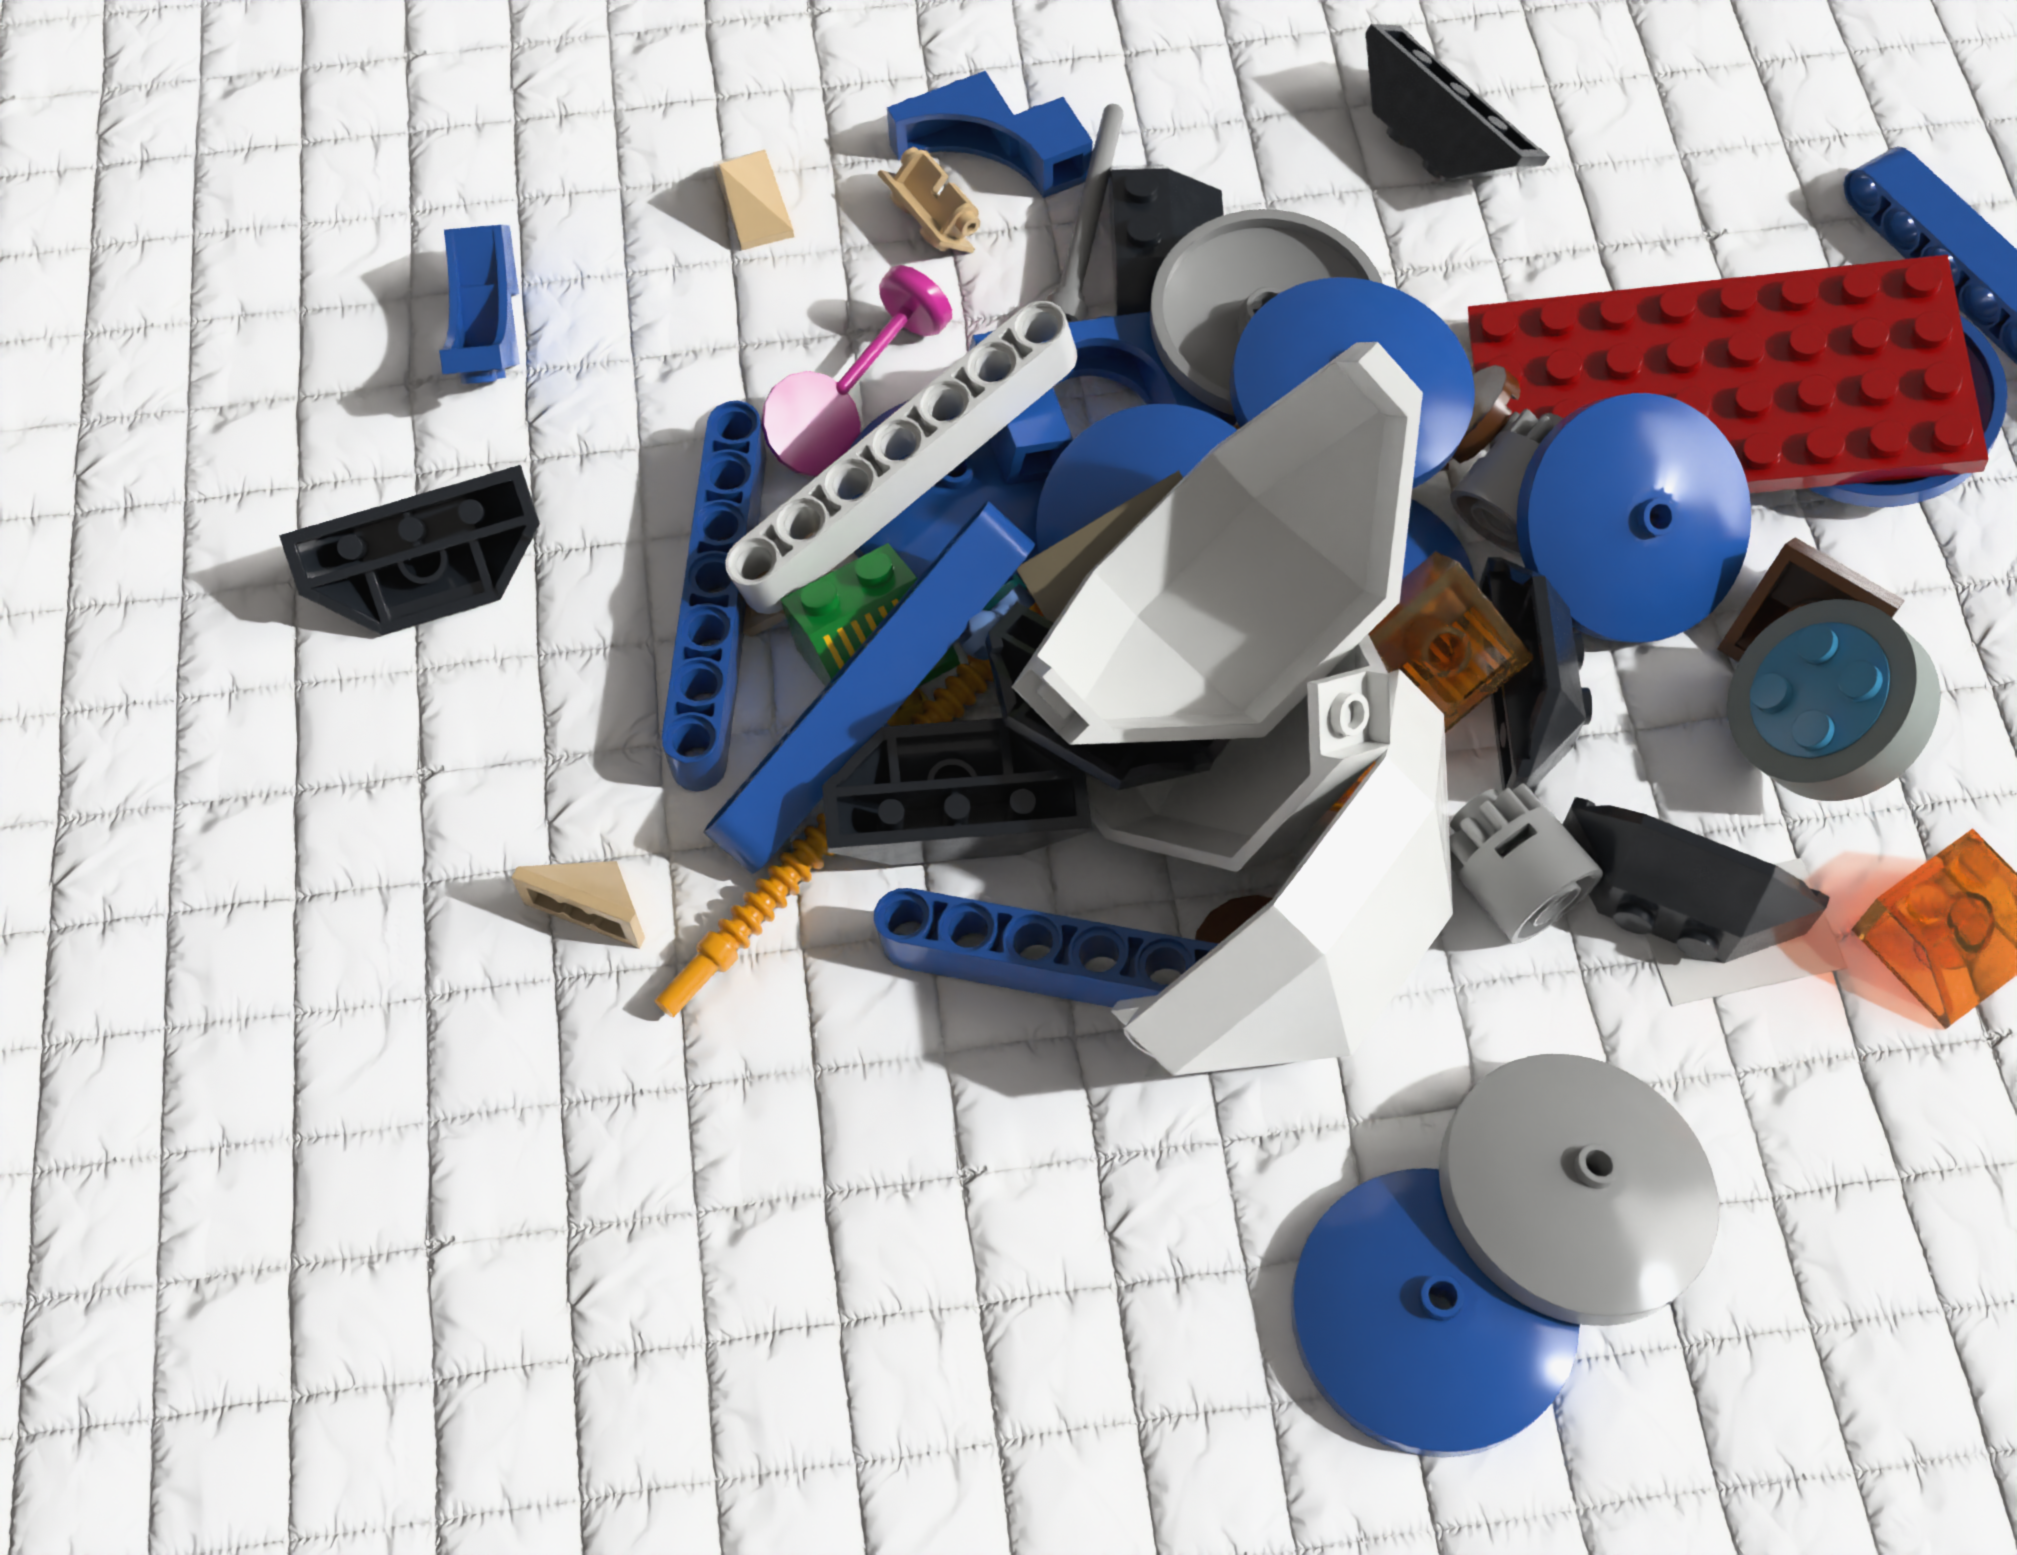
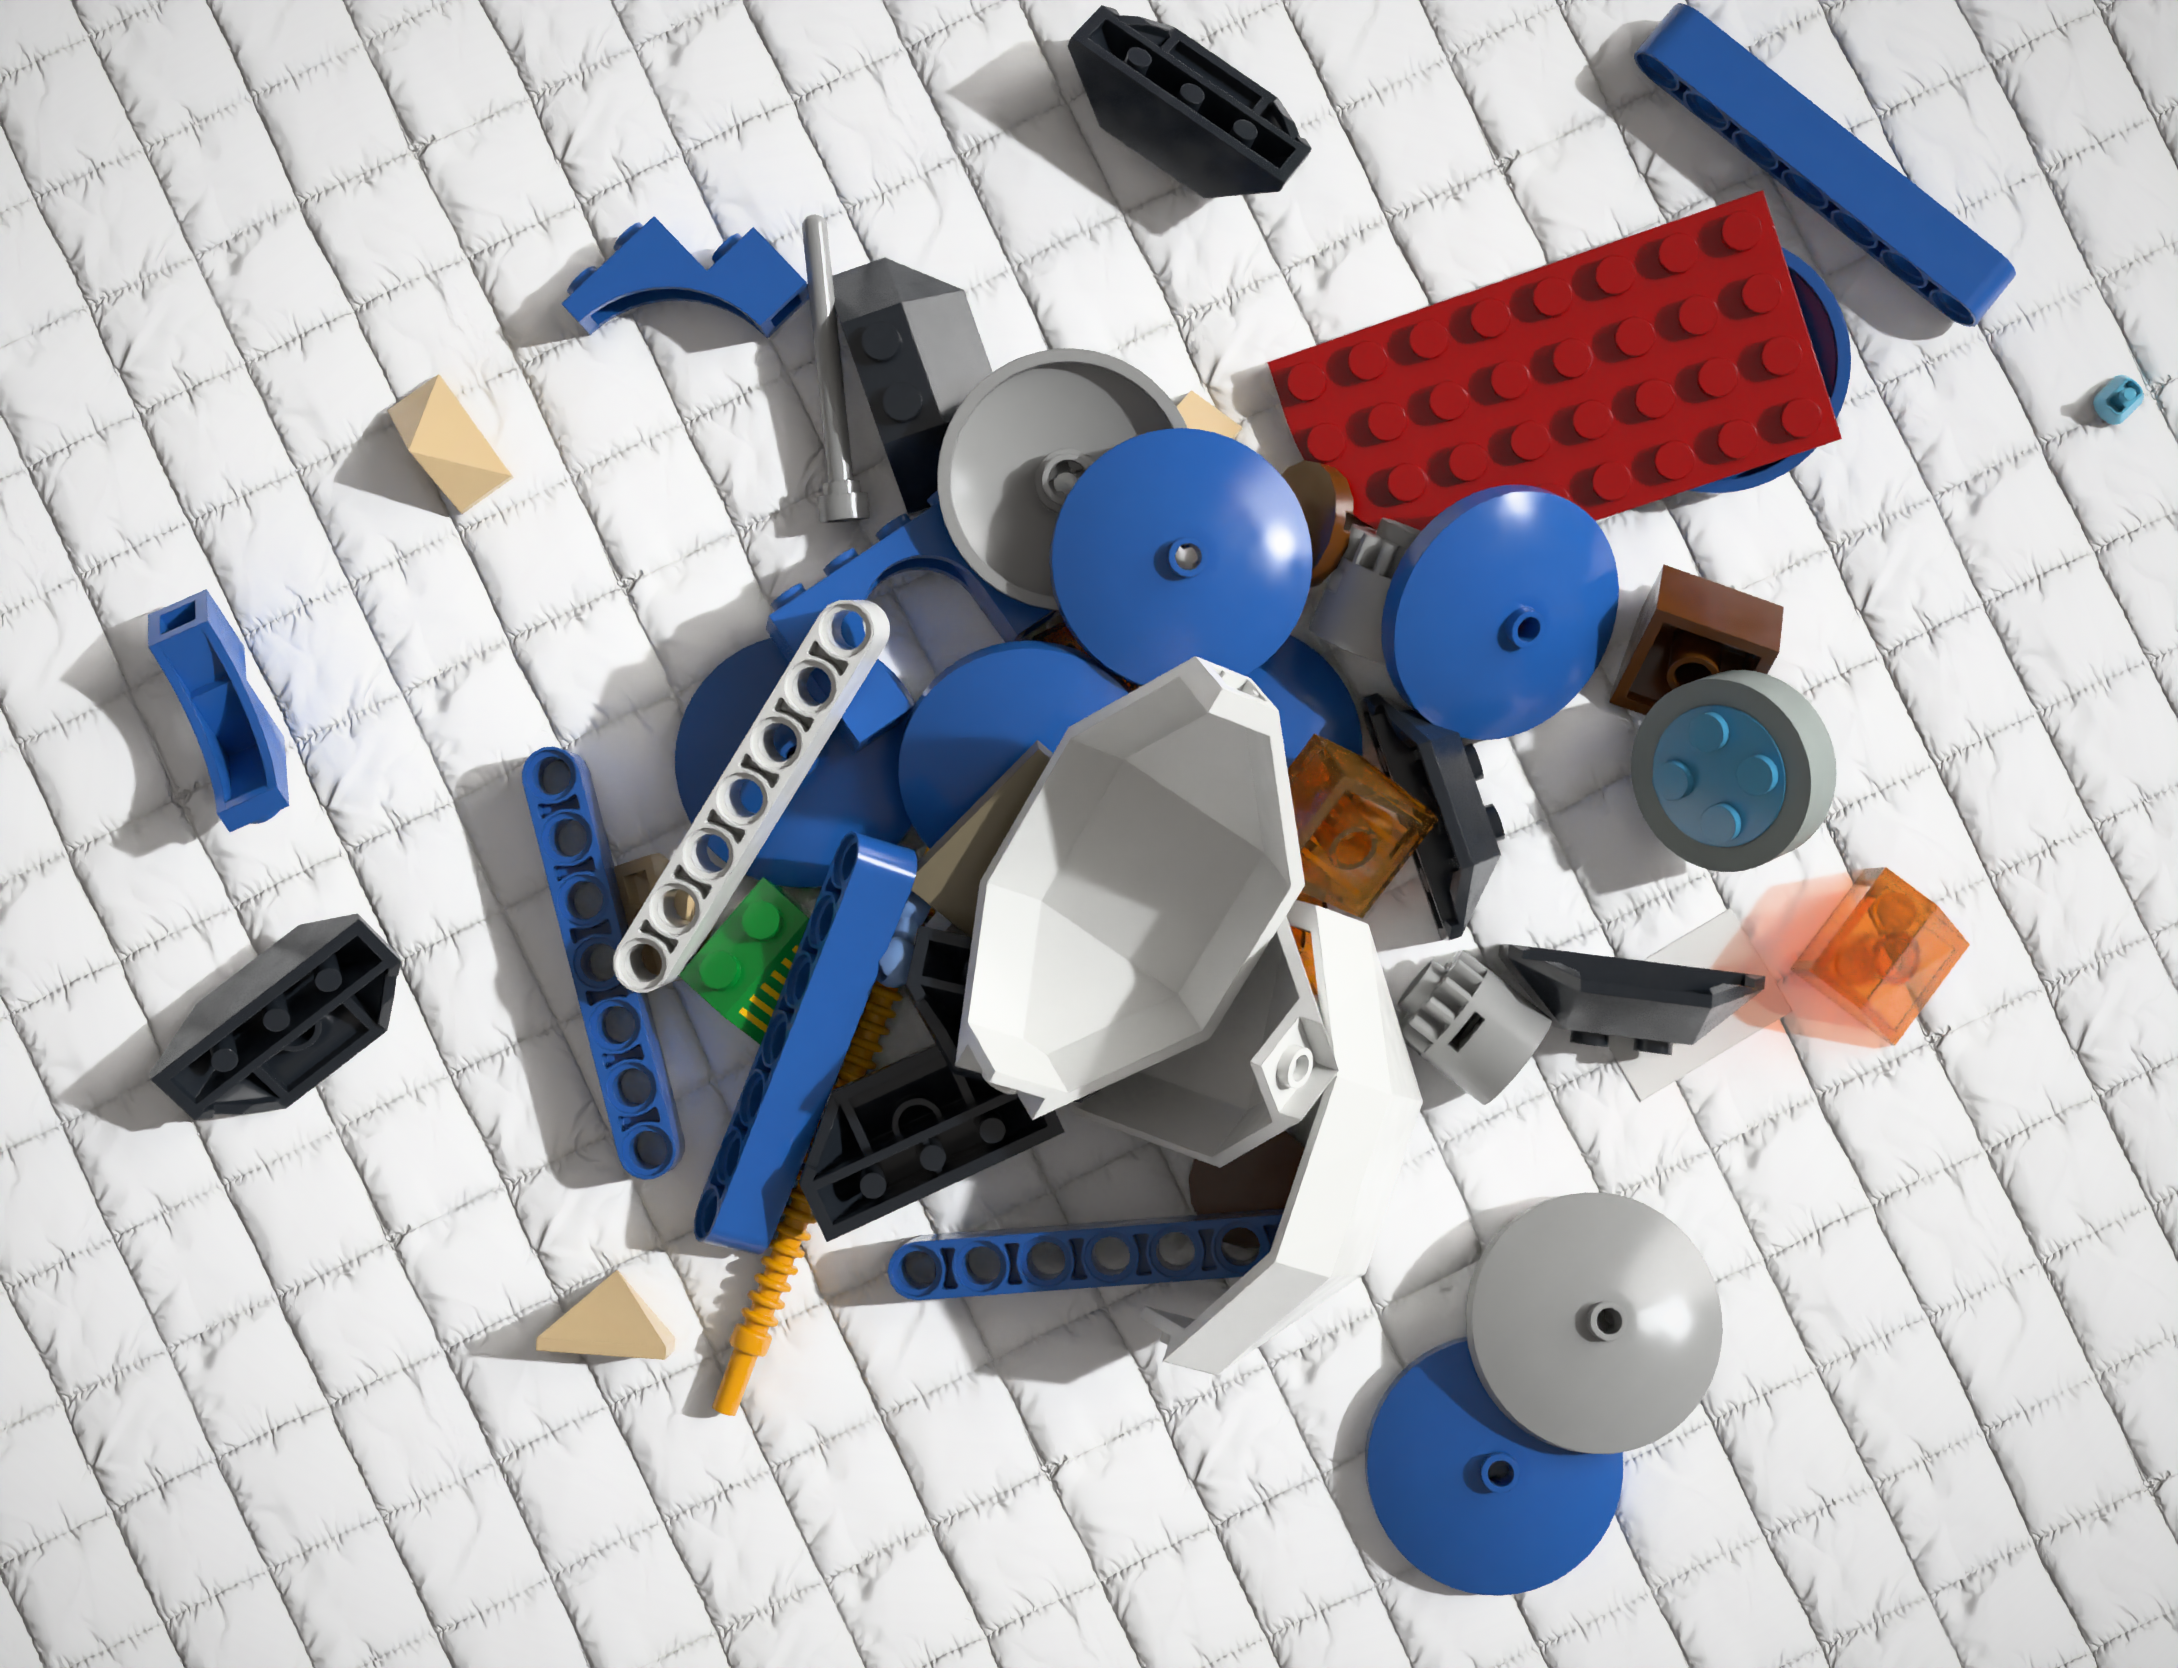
camera: 20 degrees left, 25 degrees up
(810, 415) = (629, 726): dark pink piece -> none
(944, 216) = (667, 420): tan hinge -> none

